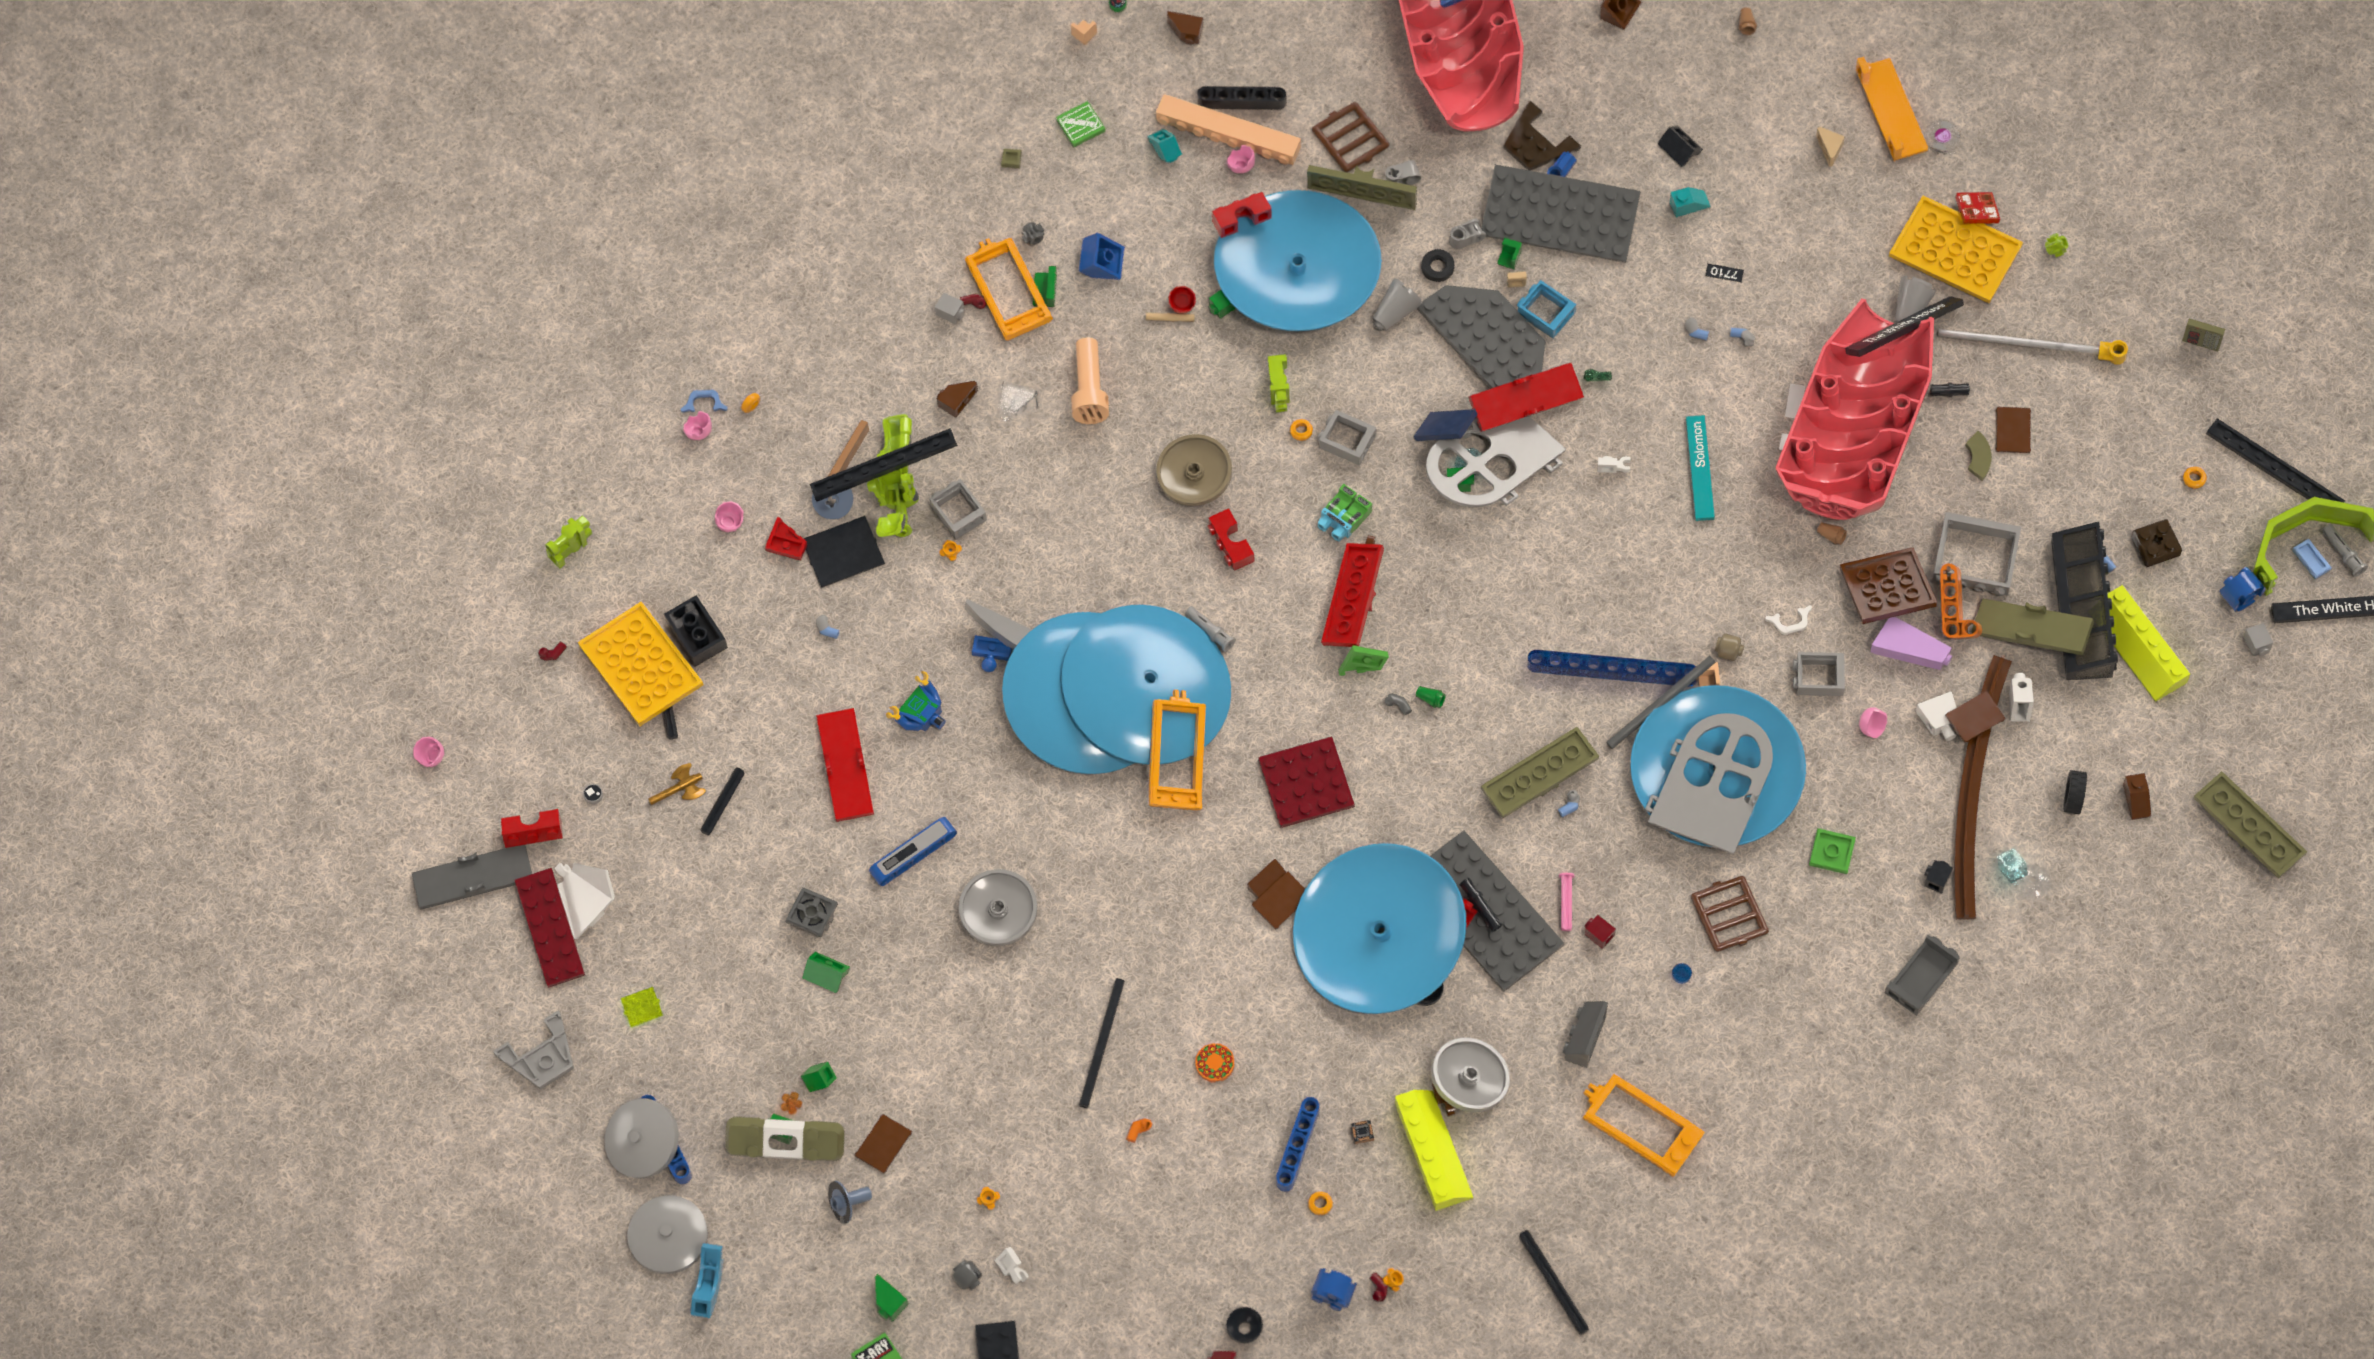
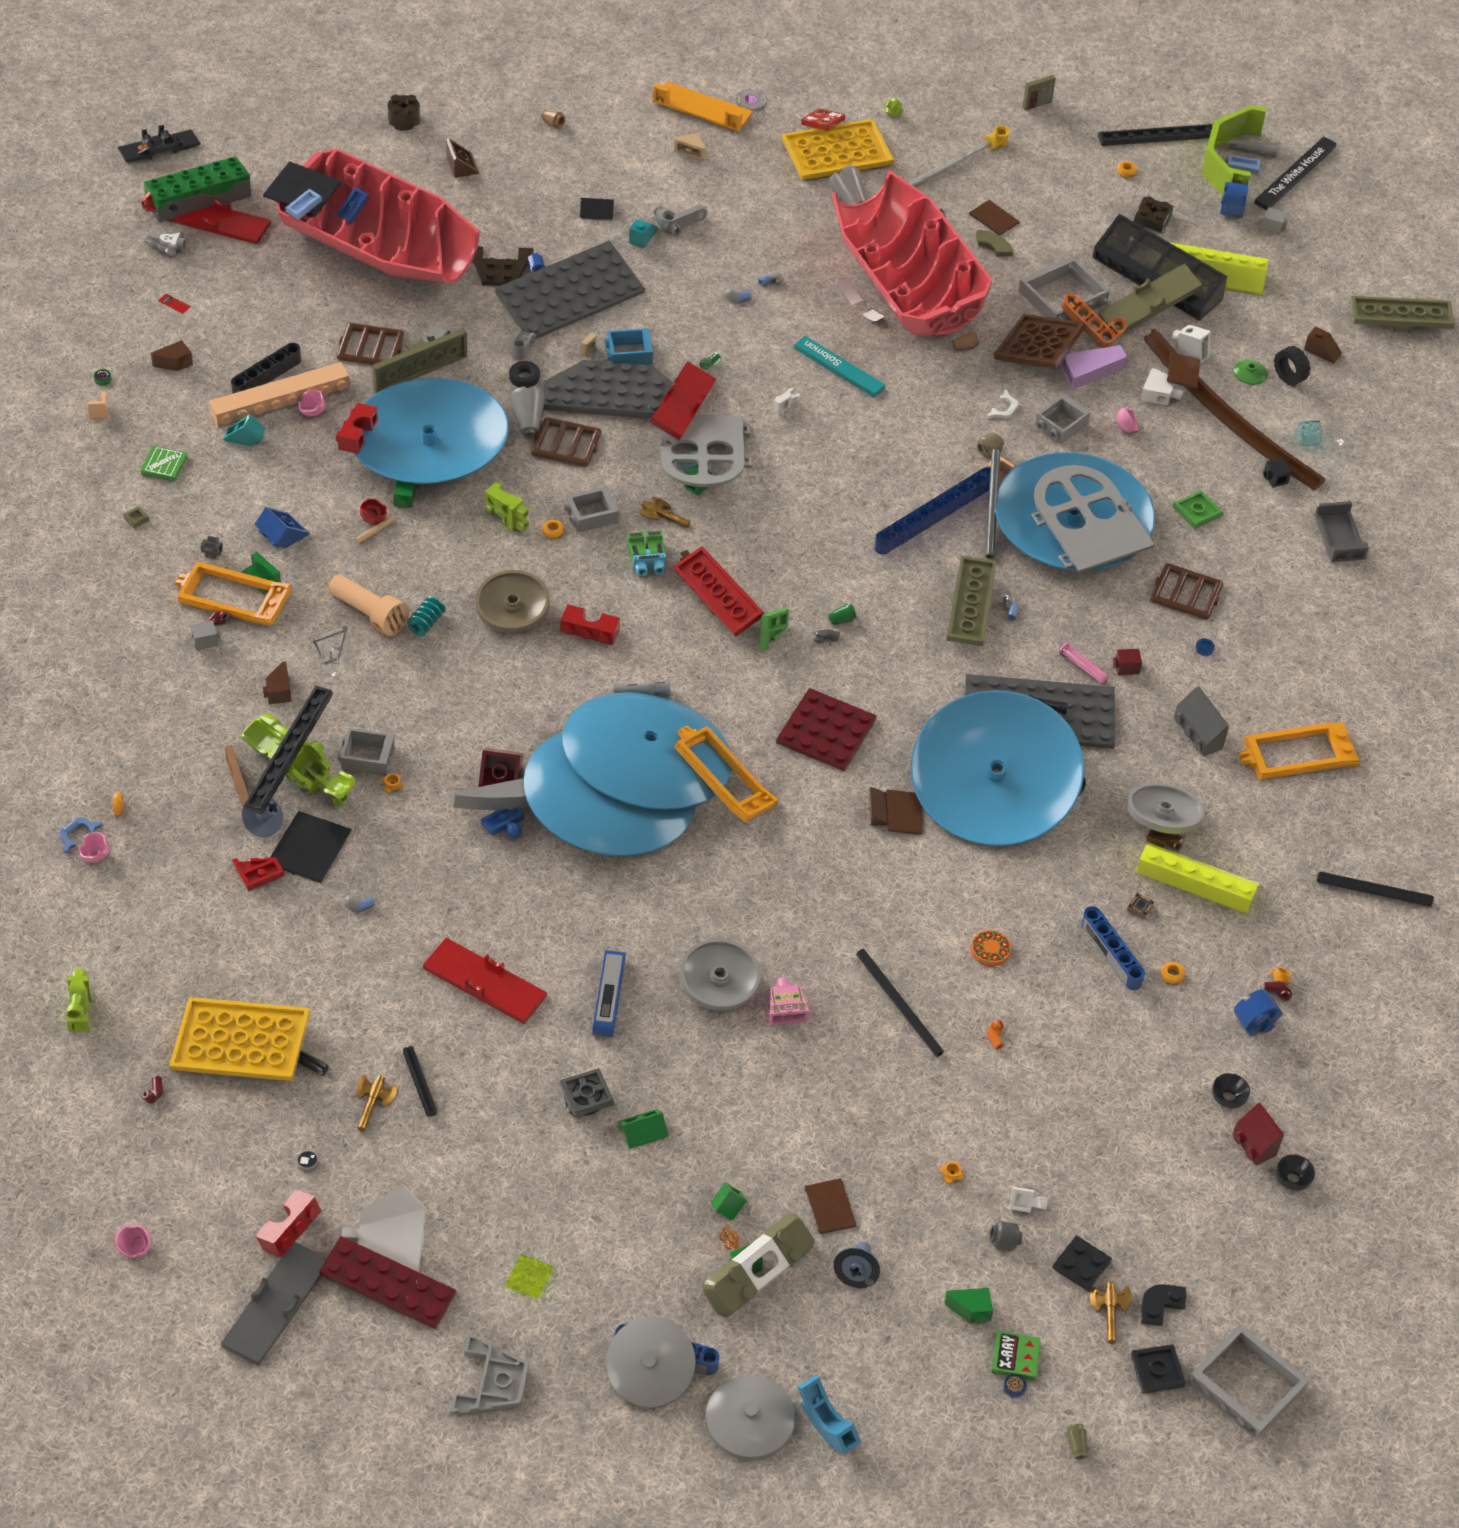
camera: 55 degrees left, 15 degrees down
(695, 630) = (259, 980): black brick -> none
(729, 516) = (193, 887): bright pink hair -> none
(920, 709) = (498, 894): torso -> none
(1020, 970) = (787, 1004): none -> bright pink torso
(1033, 604) = (499, 766): none -> dark red slope
(1120, 427) = (426, 616): none -> teal piece
(1400, 478) = (657, 509): none -> pearl gold piece
(1415, 339) = (552, 454): none -> reddish brown bar
(1445, 425) = (653, 450): dark blue tile -> none
(1510, 253) = (565, 334): green panel -> none
(1724, 272) = (713, 256): black sticker -> none
(1732, 215) = (674, 222): none -> light grey piece
(1903, 326) = (870, 197): black tile -> none
(2046, 773) = (1250, 372): none -> bright green dish

